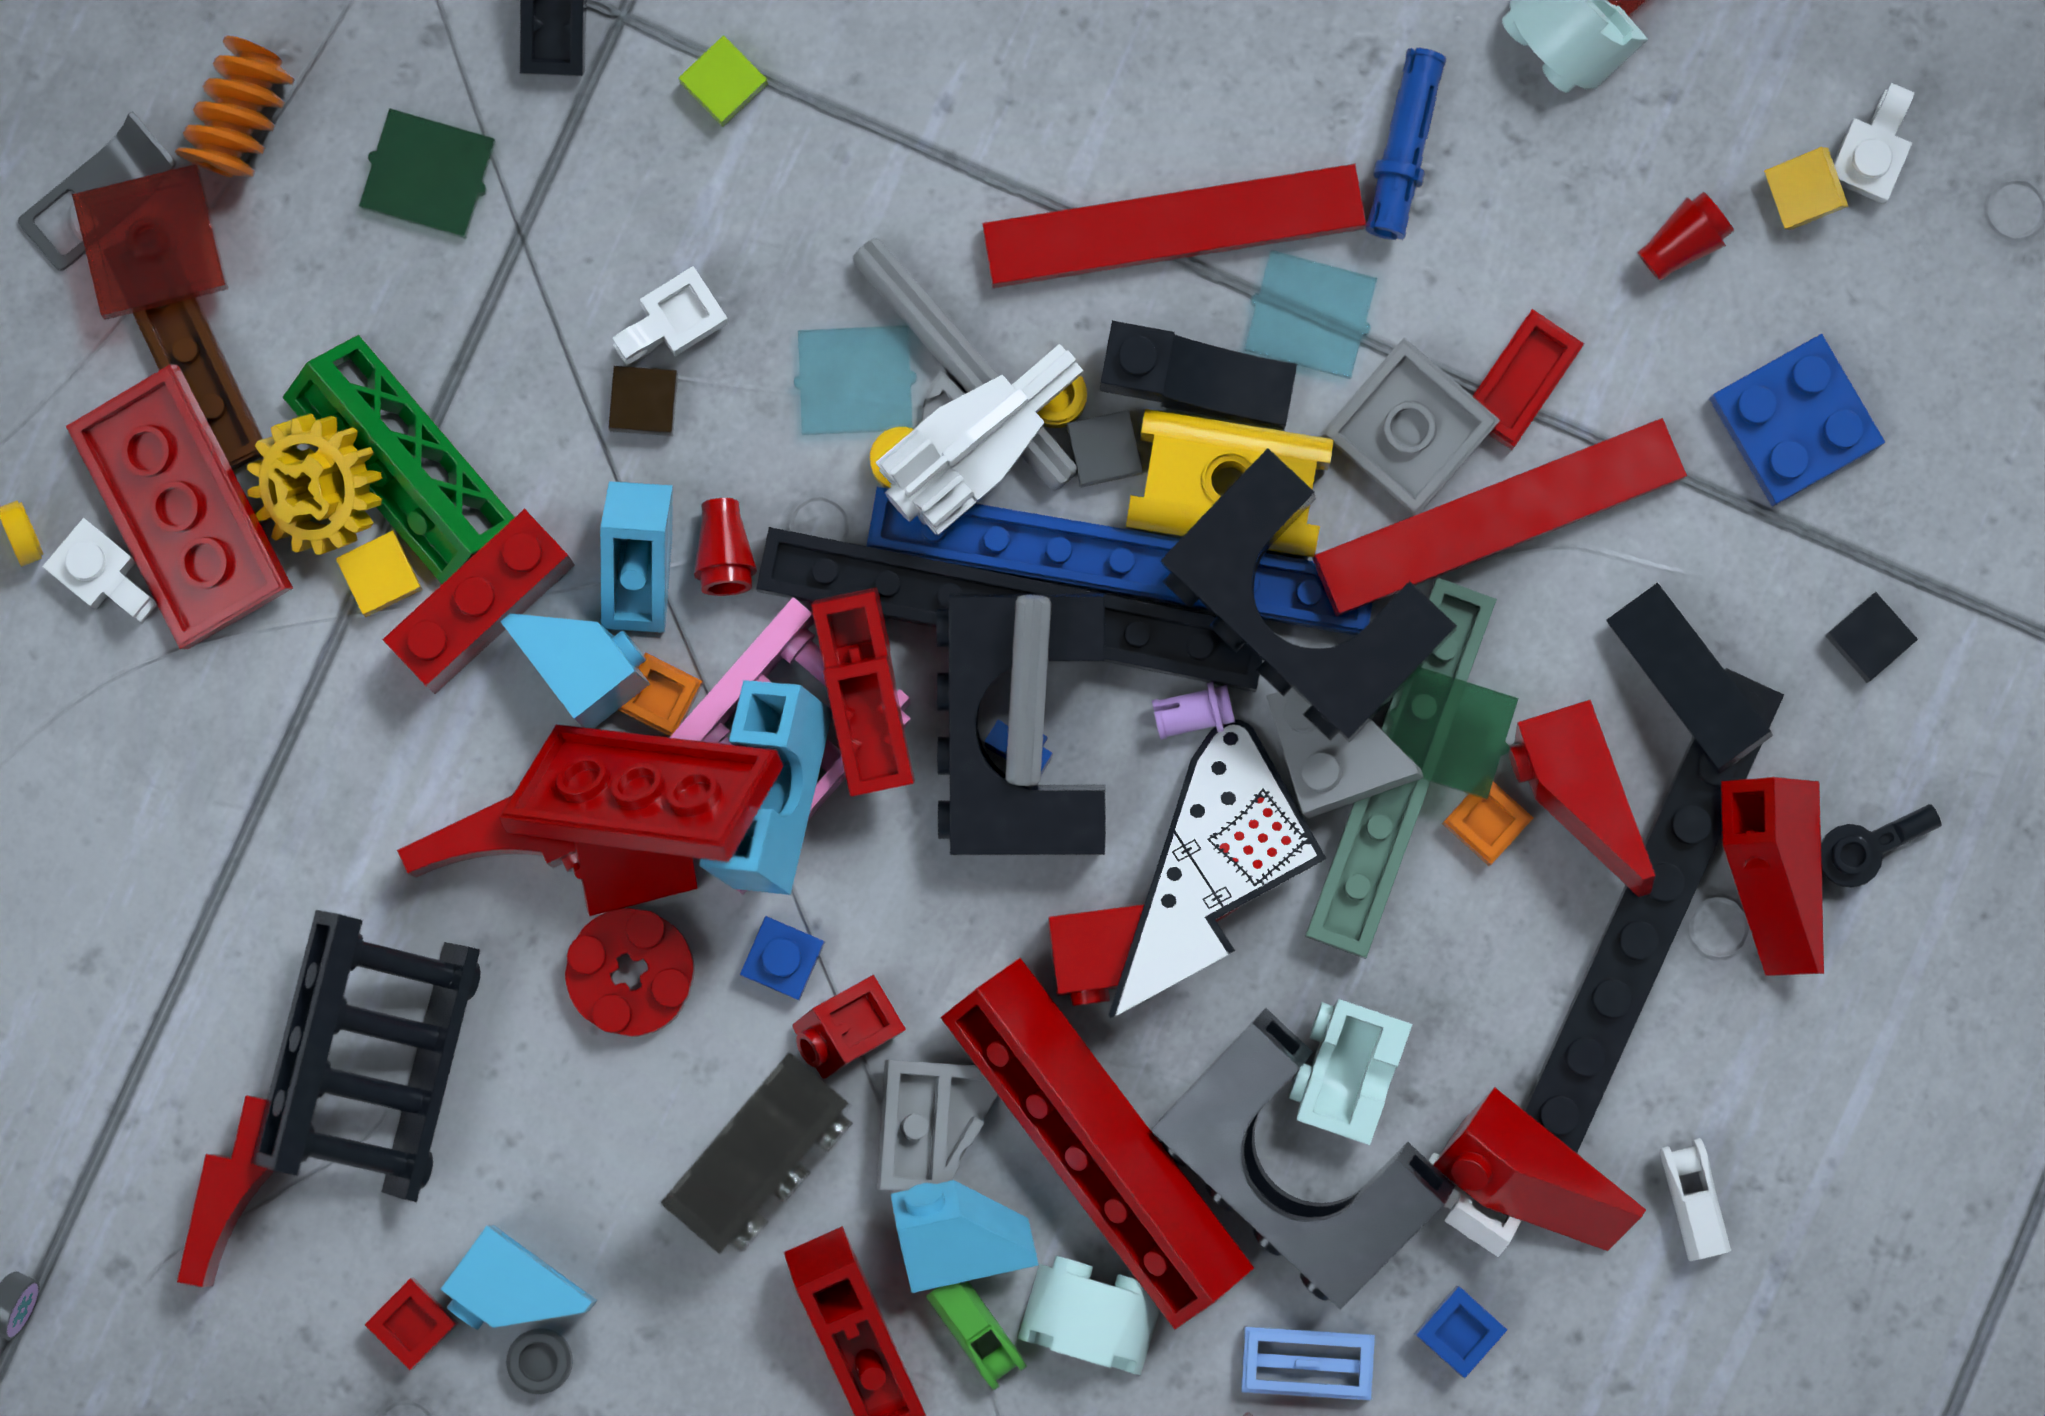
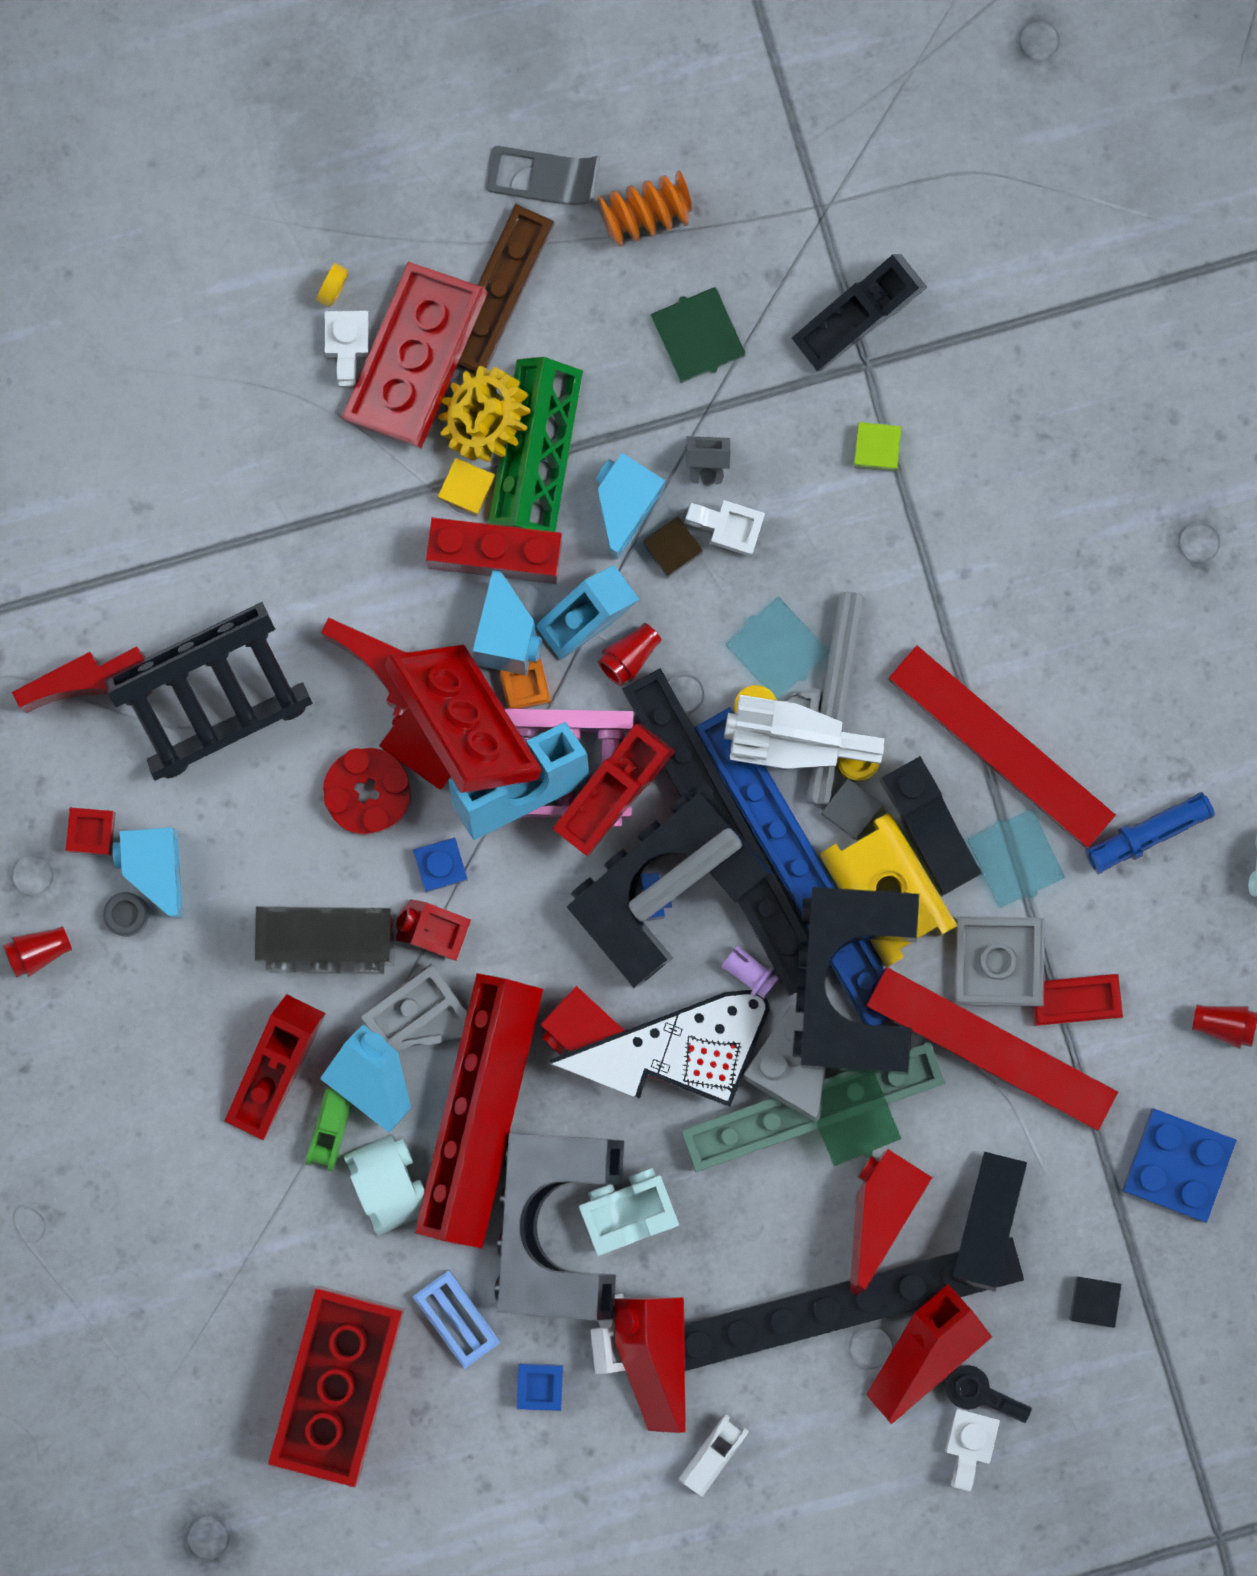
camera: 50 degrees right, 0 degrees up
(150, 241) = (539, 223): clear red plate -> none
(545, 408) = (625, 499): none -> medium azure slope
(572, 272) = (708, 453): none -> dark grey tile
(1488, 824) = (823, 1179): orange tile -> none
(1911, 901) = (972, 1440): none -> white plate

